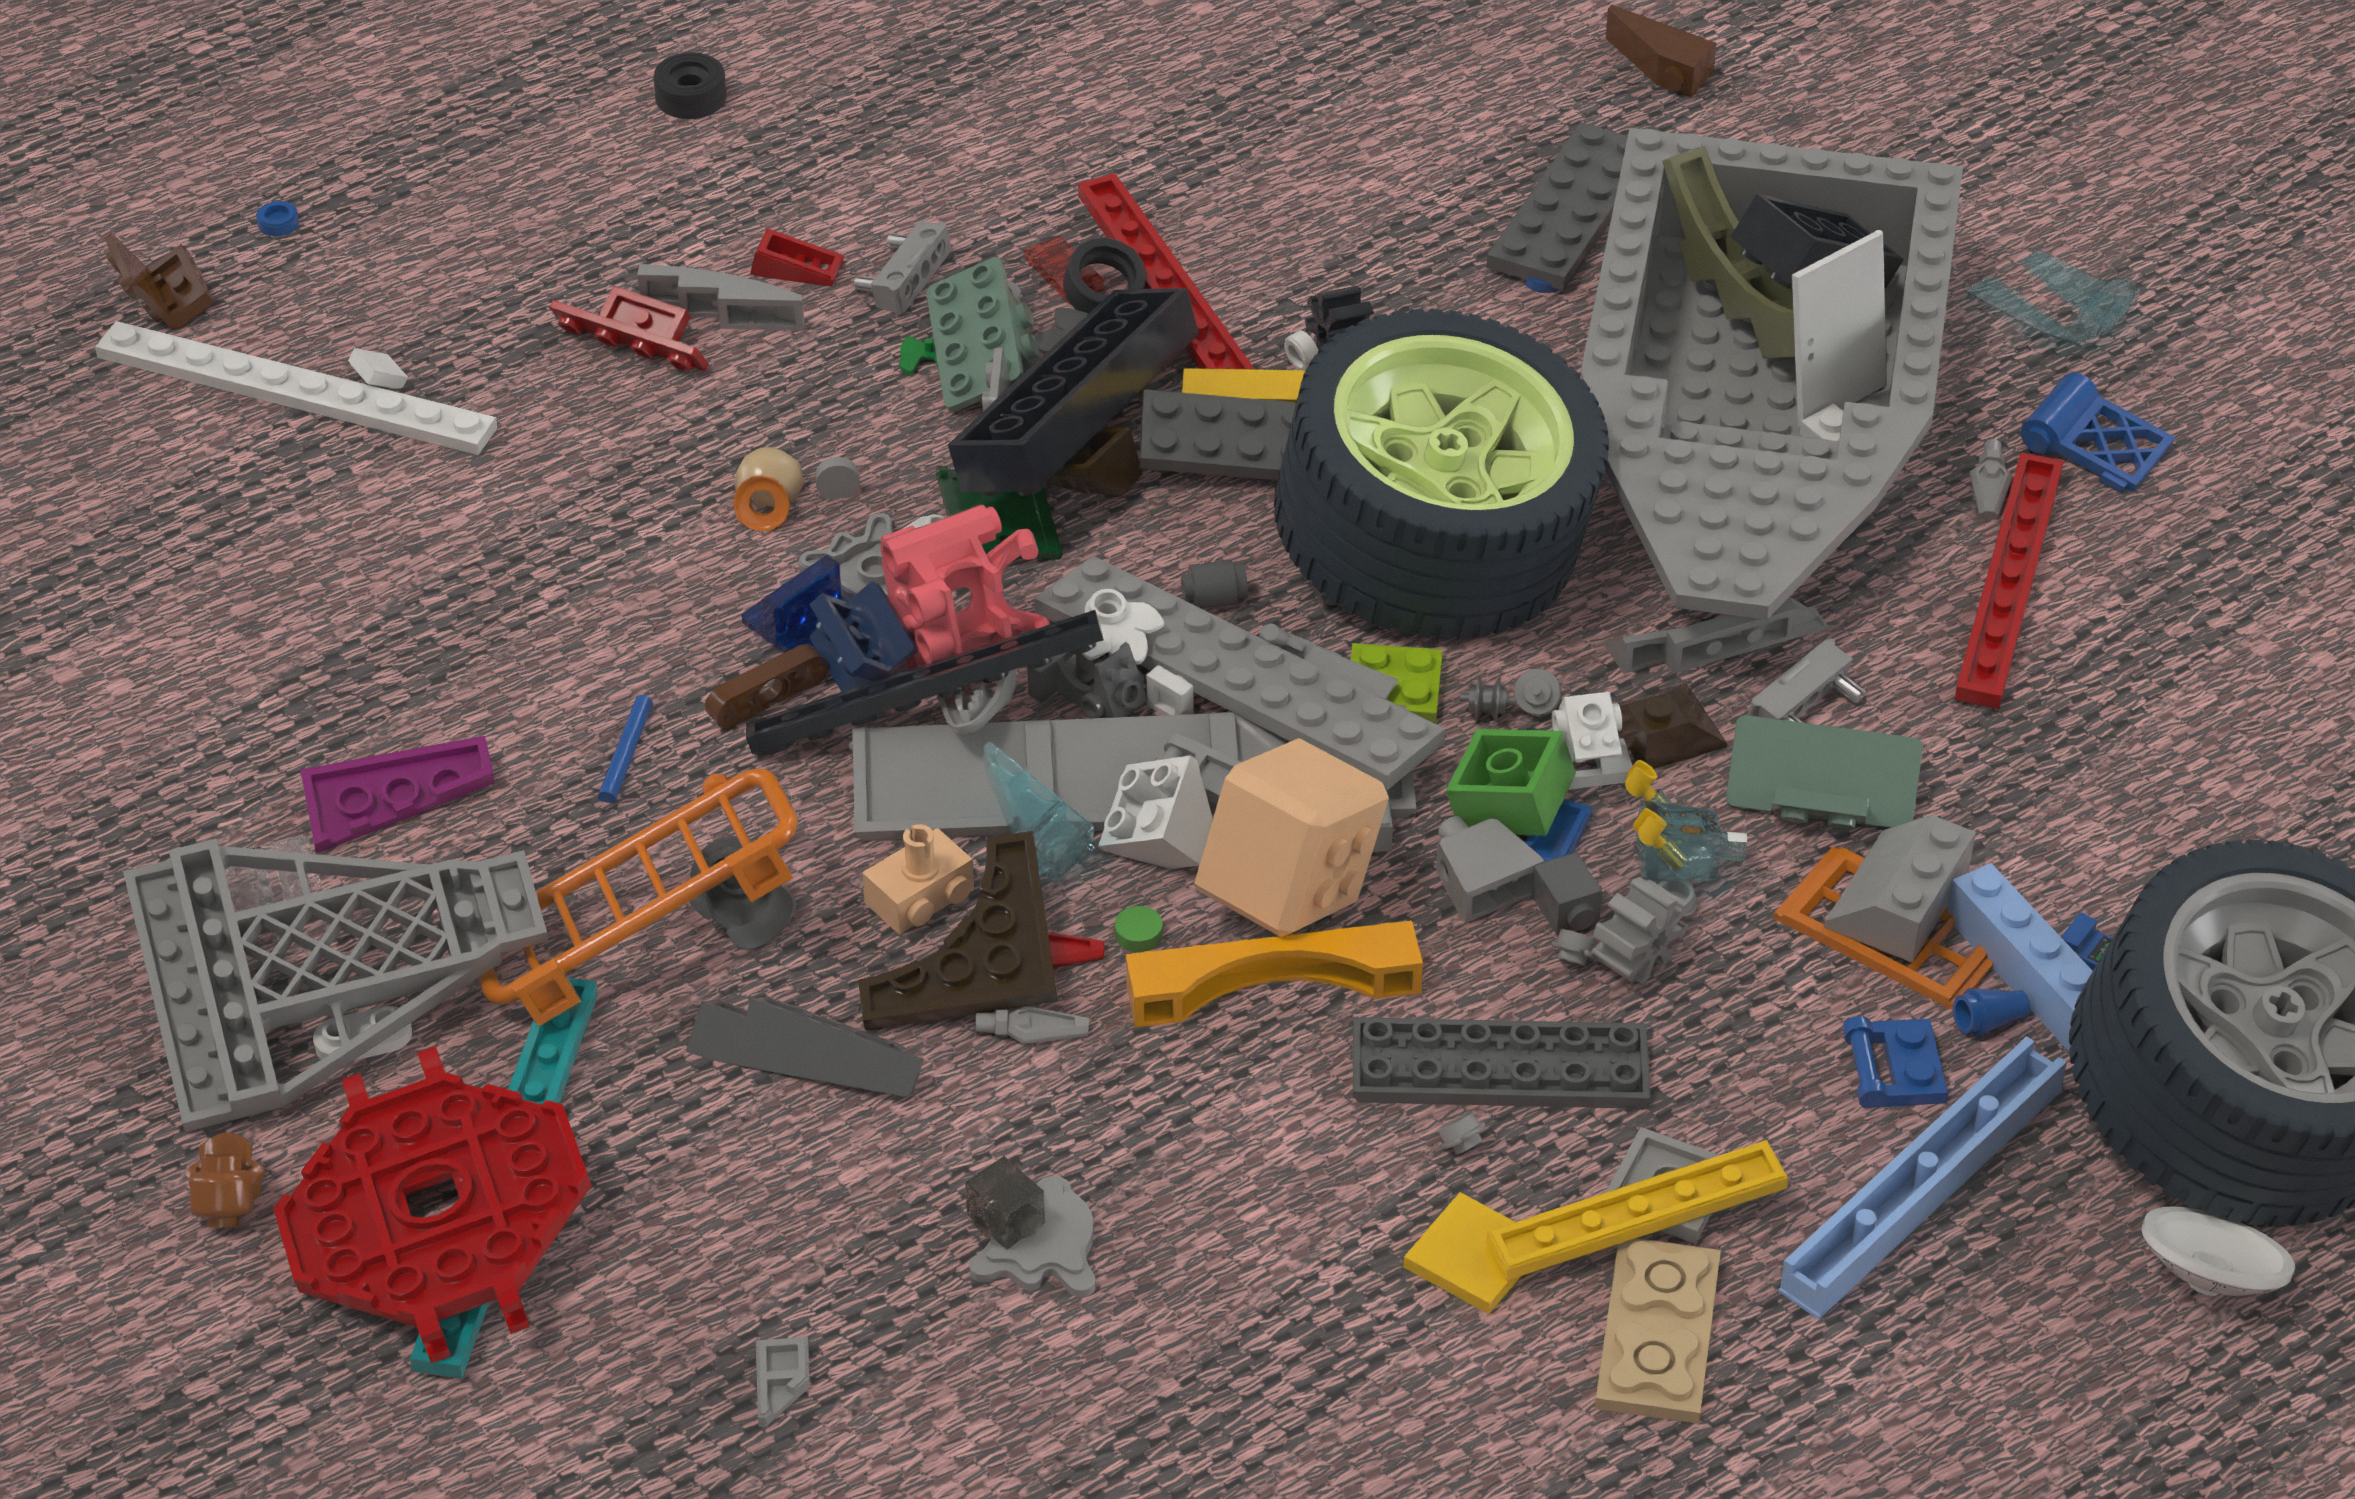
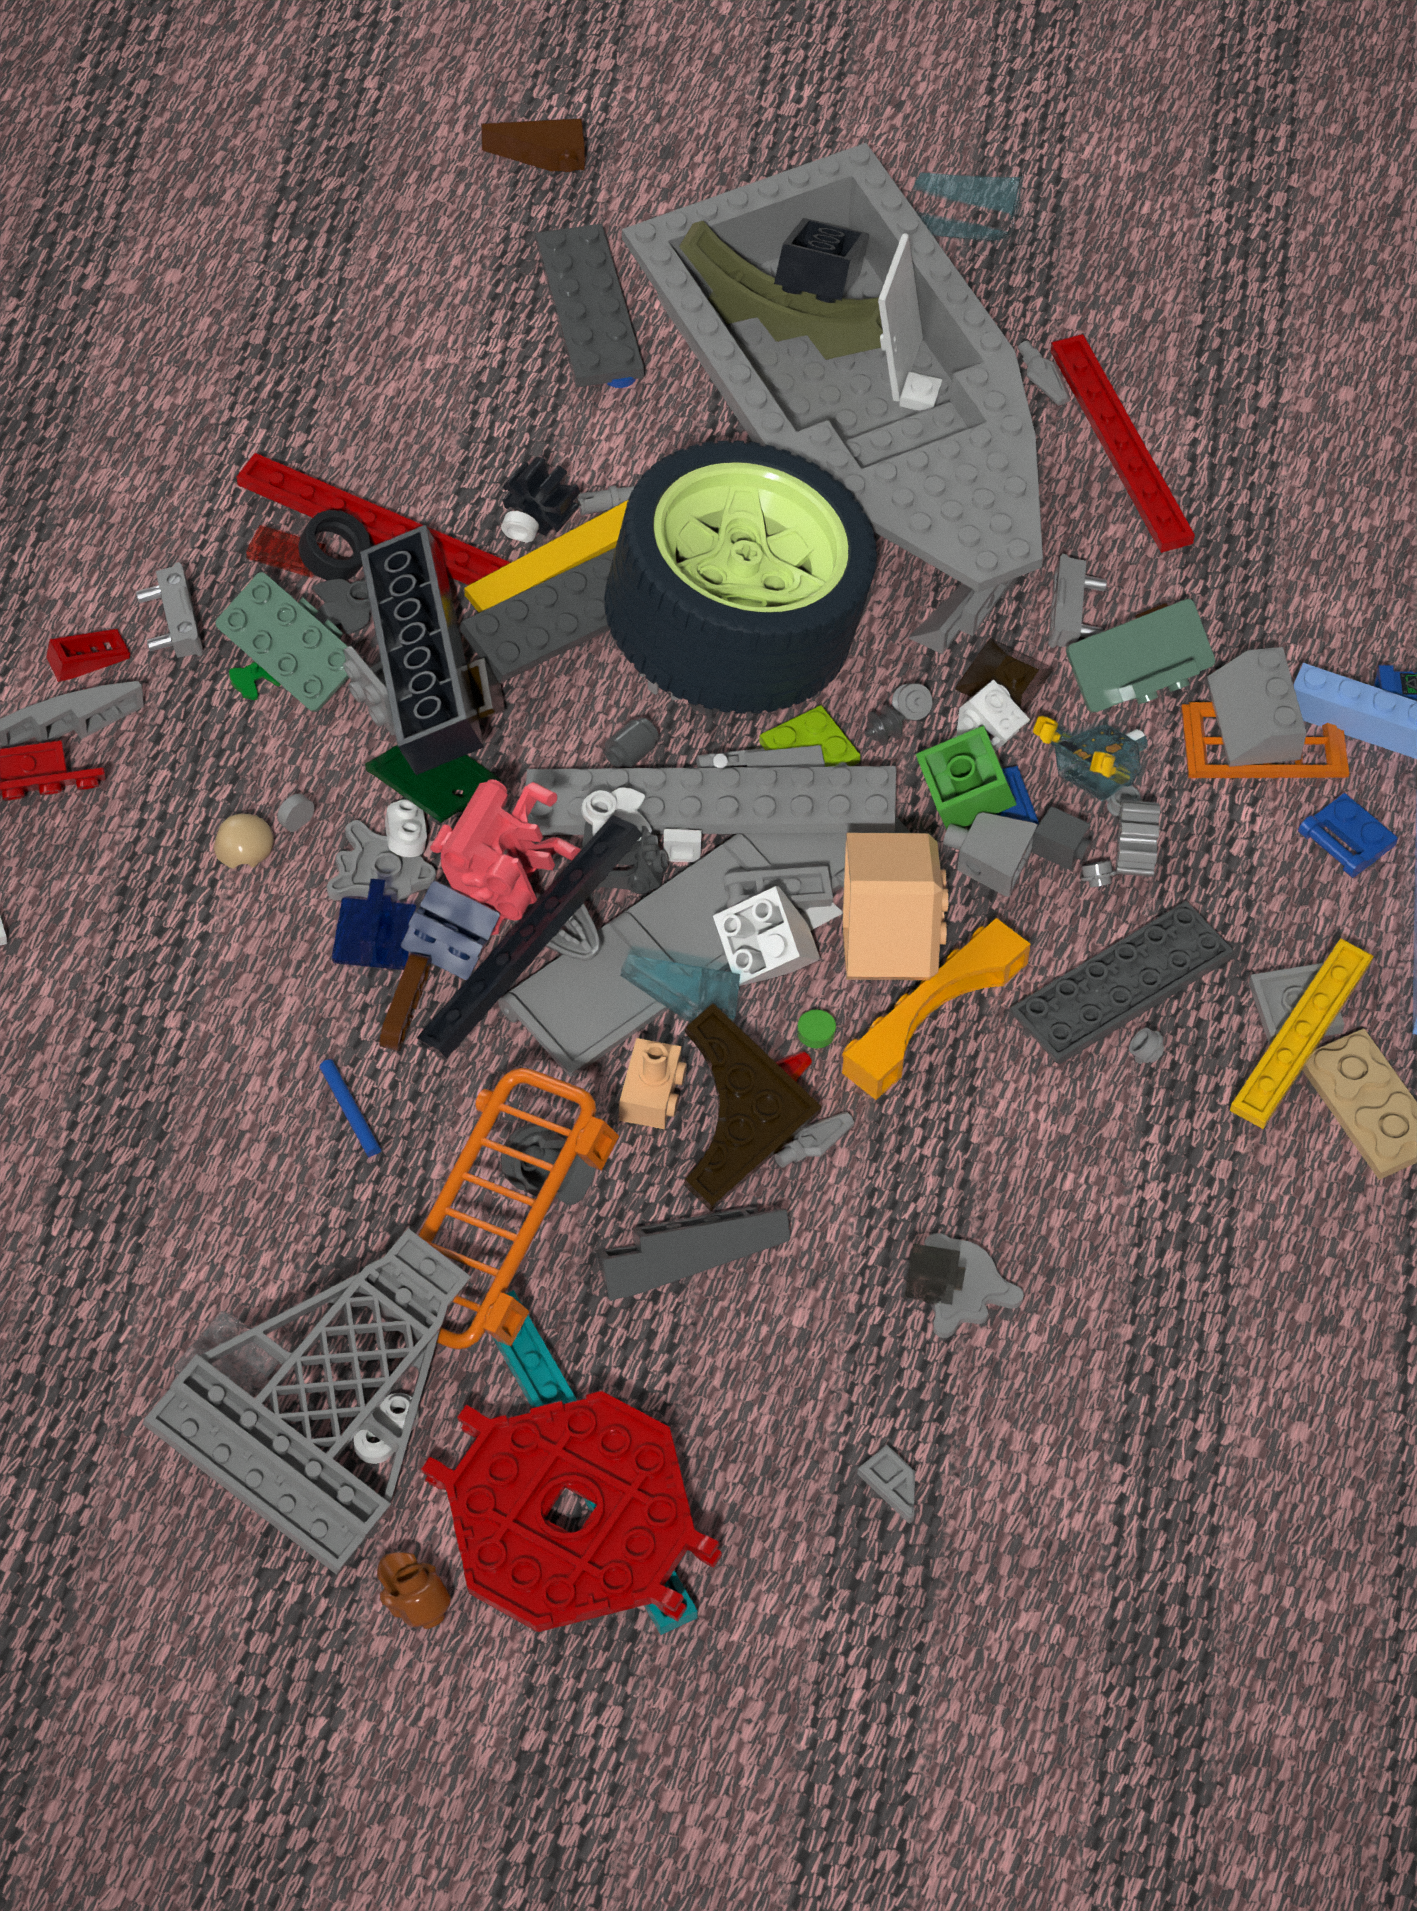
camera: 40 degrees left, 10 degrees up
(387, 788) = (216, 1244): magenta wing -> none
(749, 516) = (273, 871): orange piece -> none
(1457, 1254) = (1215, 1130): yellow tile -> none
(1986, 1010) = (1371, 767): blue cone -> none
(2074, 408) = (1054, 297): blue piece -> none

